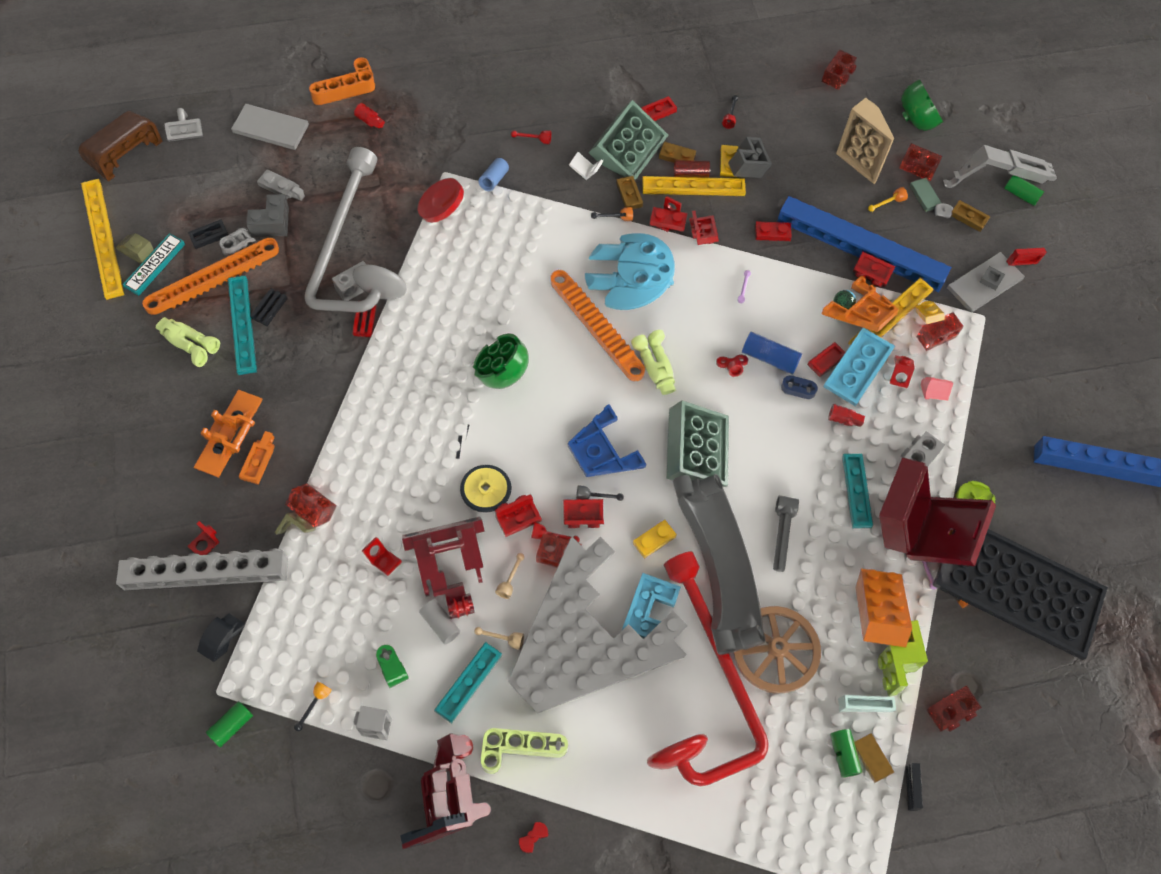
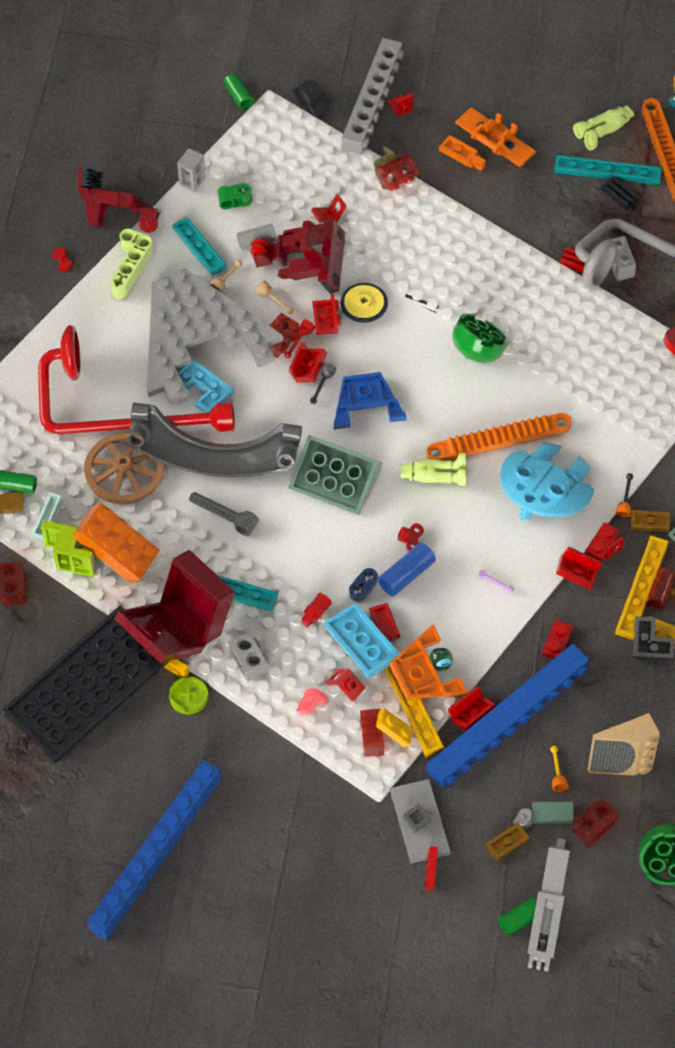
camera: 115 degrees right, 5 degrees down
(320, 692) = (236, 148): hinge -> none
(654, 538) = (262, 413): yellow plate -> none

